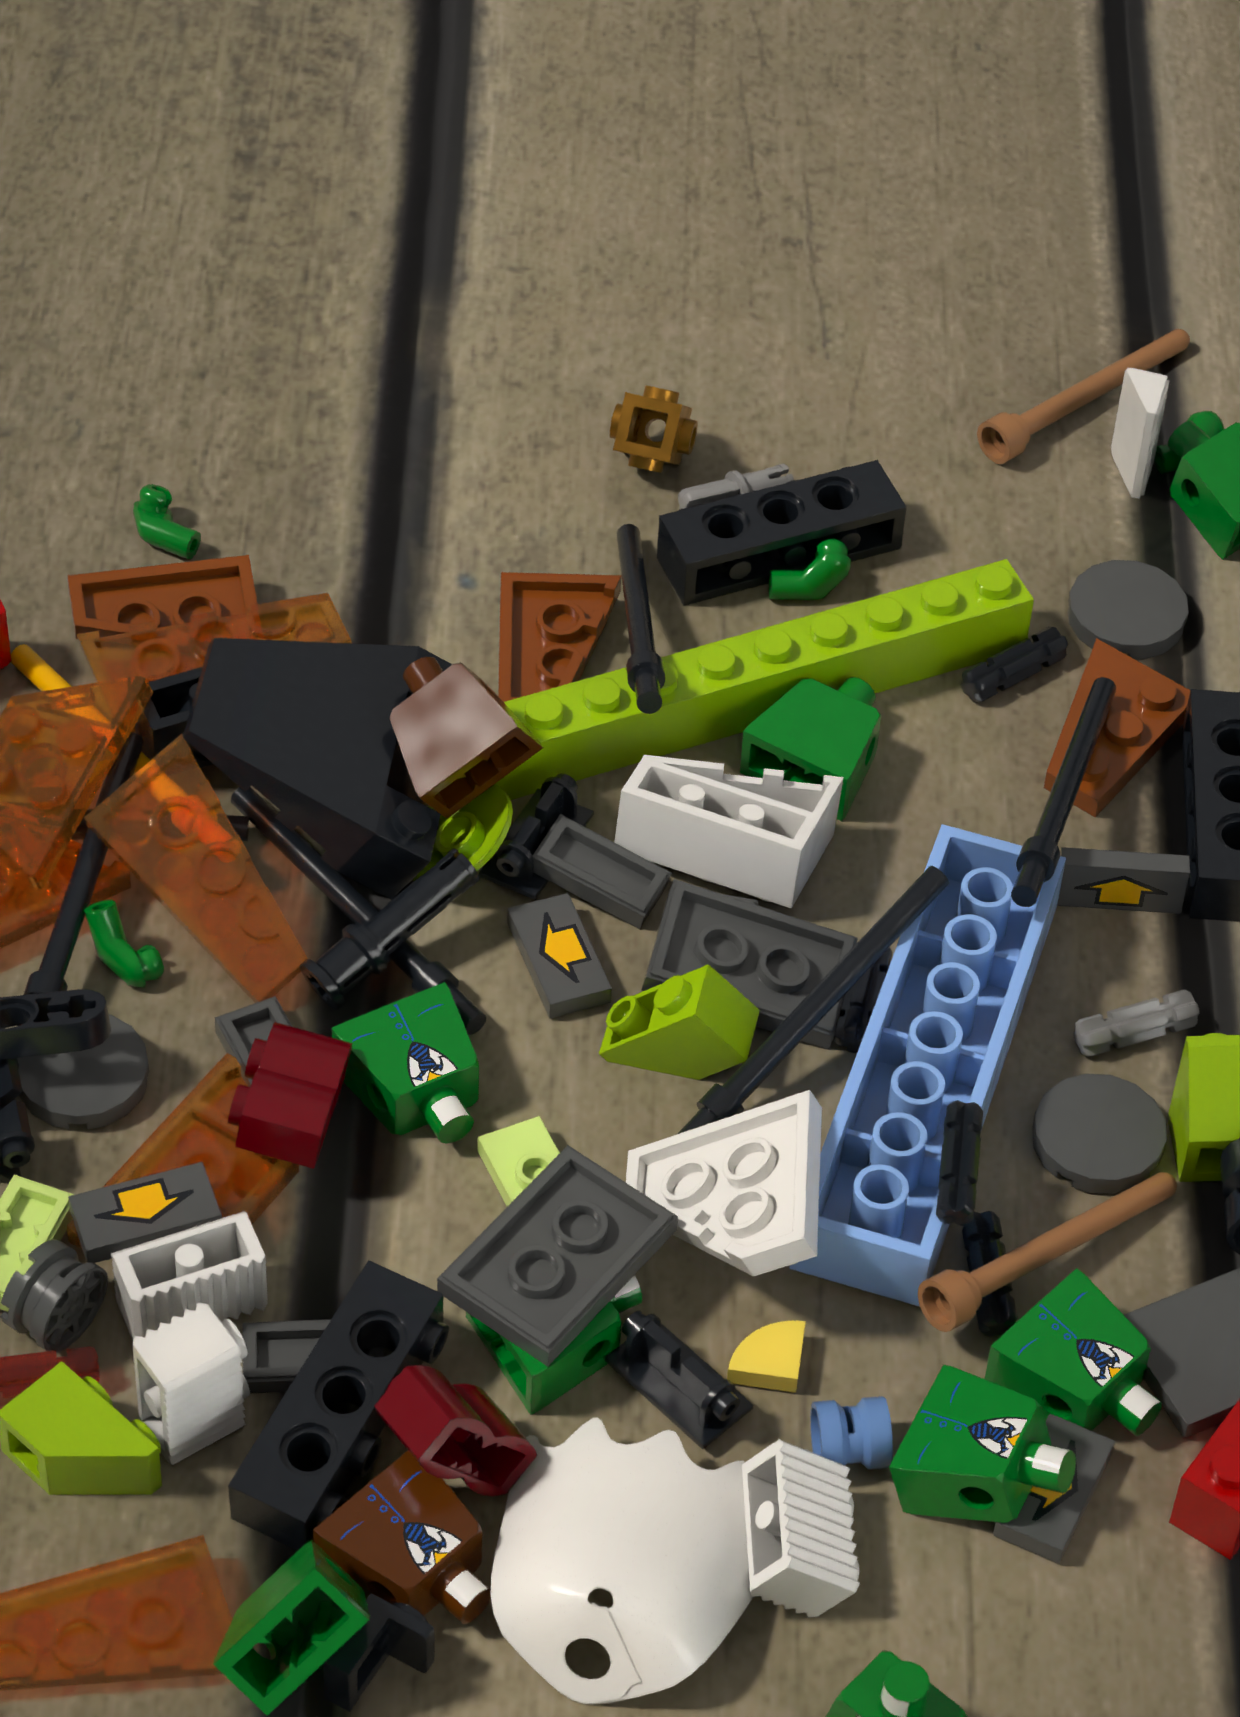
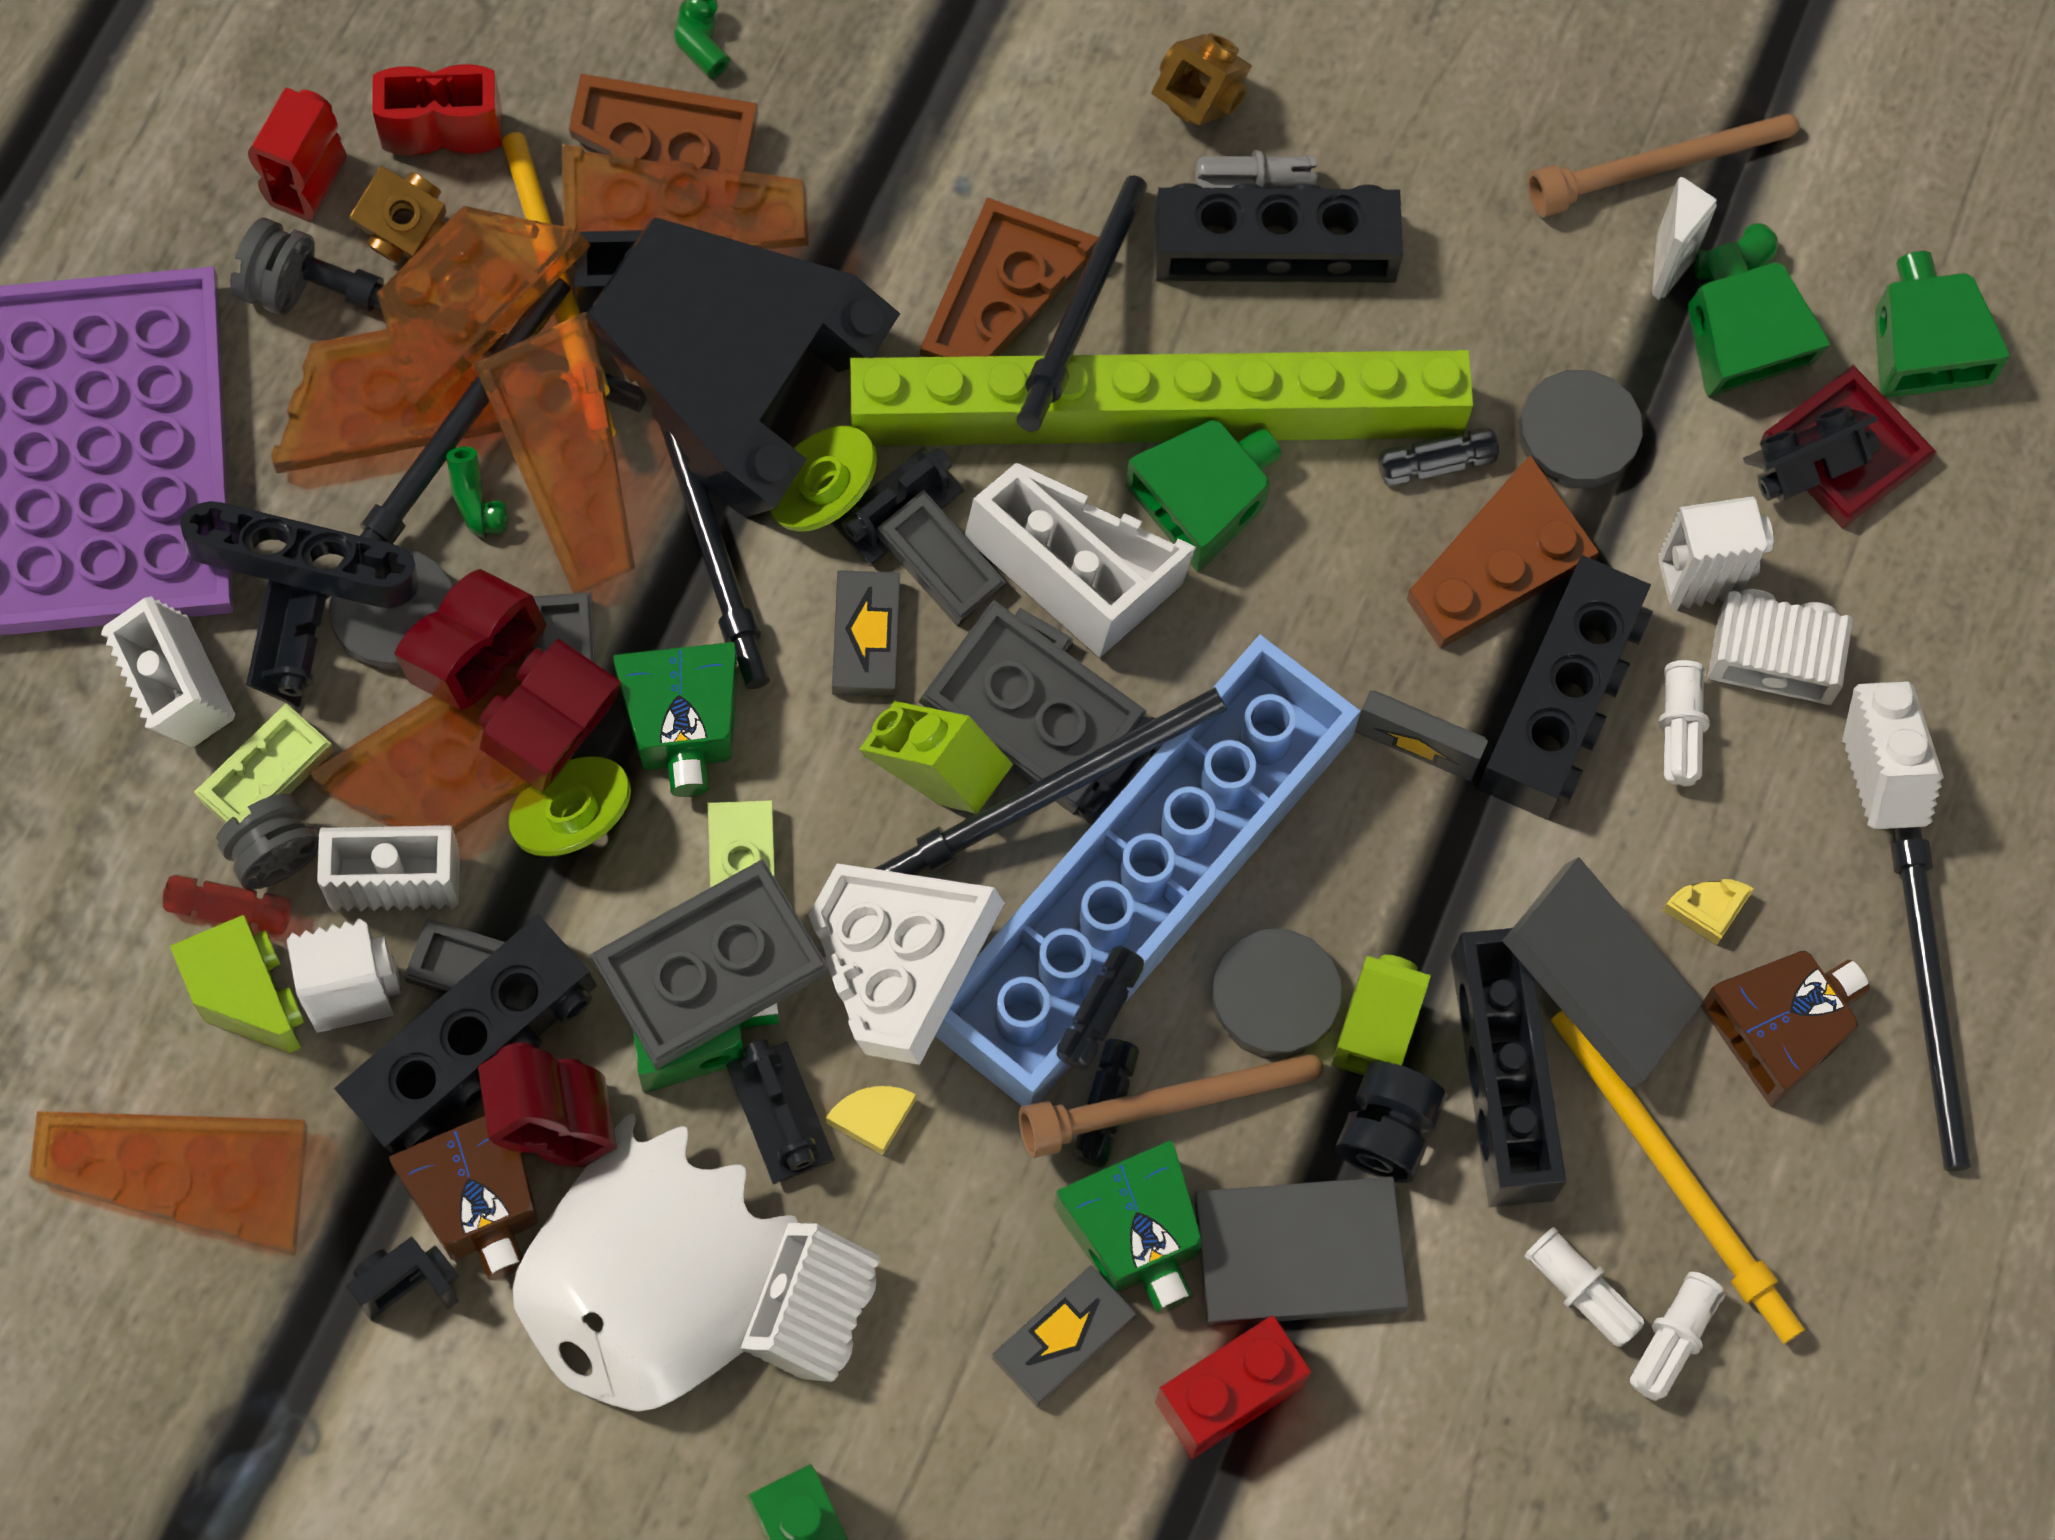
camera: 20 degrees right, 20 degrees up
(142, 1210) = (376, 787): dark grey tile -> none
(182, 1055) = (470, 639): none -> dark red brick
(300, 1617) = (350, 1227): green torso -> none
(347, 1176) = (573, 809): none -> lime dish
(368, 945) = (688, 573): black pin -> none
(456, 735) = (843, 389): torso -> none
(817, 579) = (1288, 298): green arm -> none
(853, 1432) = (917, 1227): medium blue wheel -> none
(976, 1452) = (1000, 1285): green torso -> none
(1040, 853) = (1330, 705): black bar -> none
(1136, 1023) = (1366, 890): light grey axle -> none

